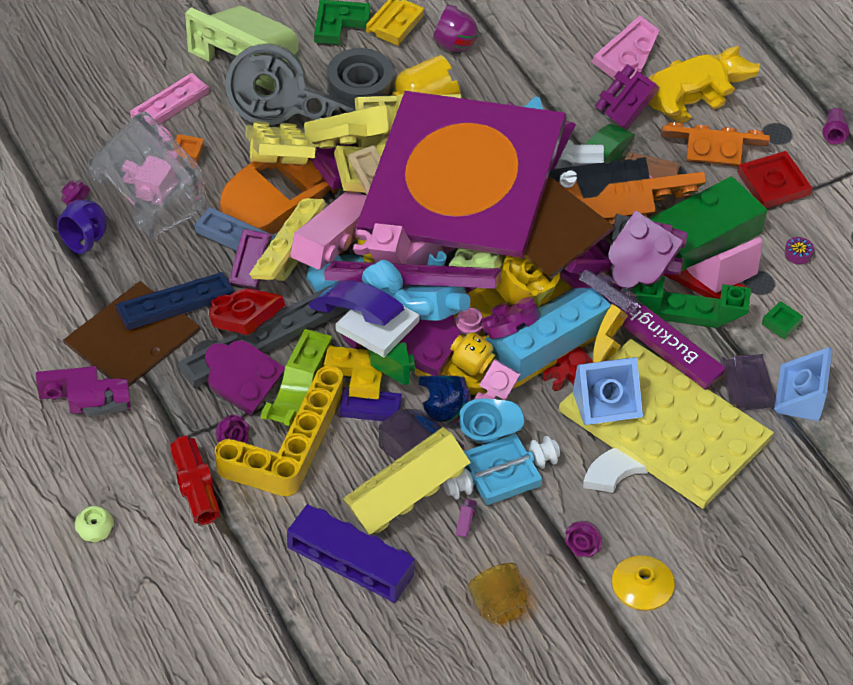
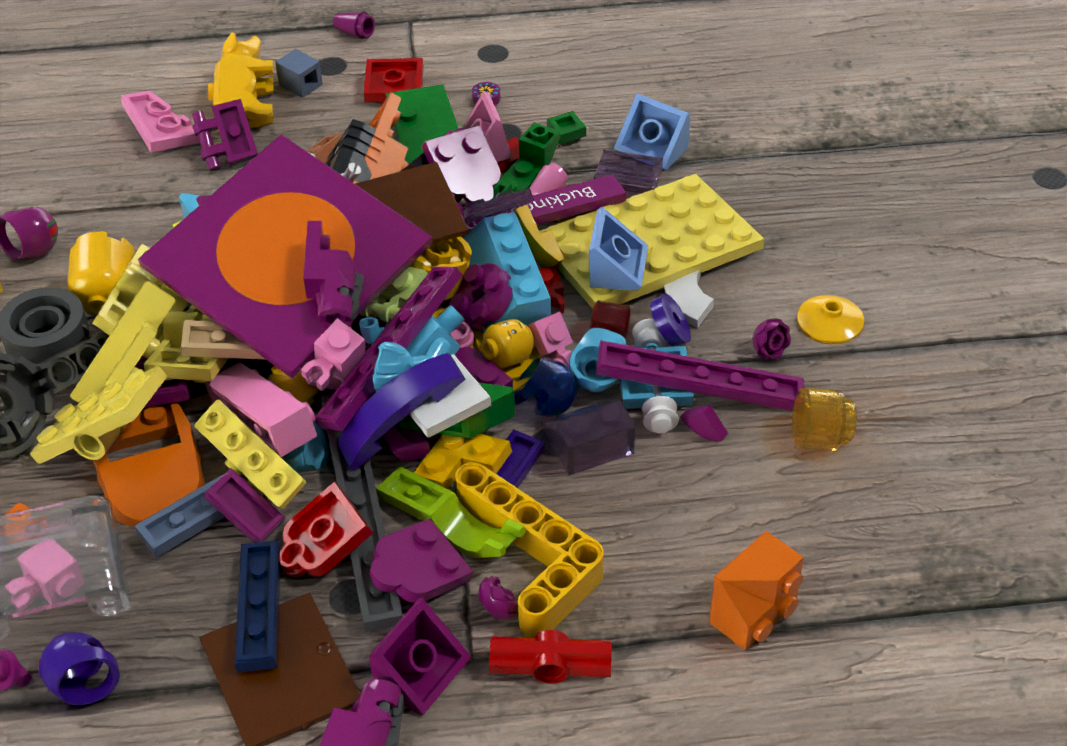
camera: 65 degrees left, 5 degrees down
(161, 401) = (419, 657): none -> magenta slope
(293, 584) = (756, 590): none -> orange slope
(351, 552) = (716, 533): dark purple brick -> none
(407, 481) = (658, 445): light yellow brick -> none
(439, 203) = (330, 278): none -> magenta plate
(508, 496) = (697, 375): none -> magenta tile
(547, 419) = (611, 317): none -> clear red piece
(550, 456) = (670, 320): none -> dark purple piece
(696, 328) = (548, 179): none -> bright pink cone
(714, 146) = (325, 104): orange bracket -> none
(742, 111) = (299, 73): none -> sand blue brick

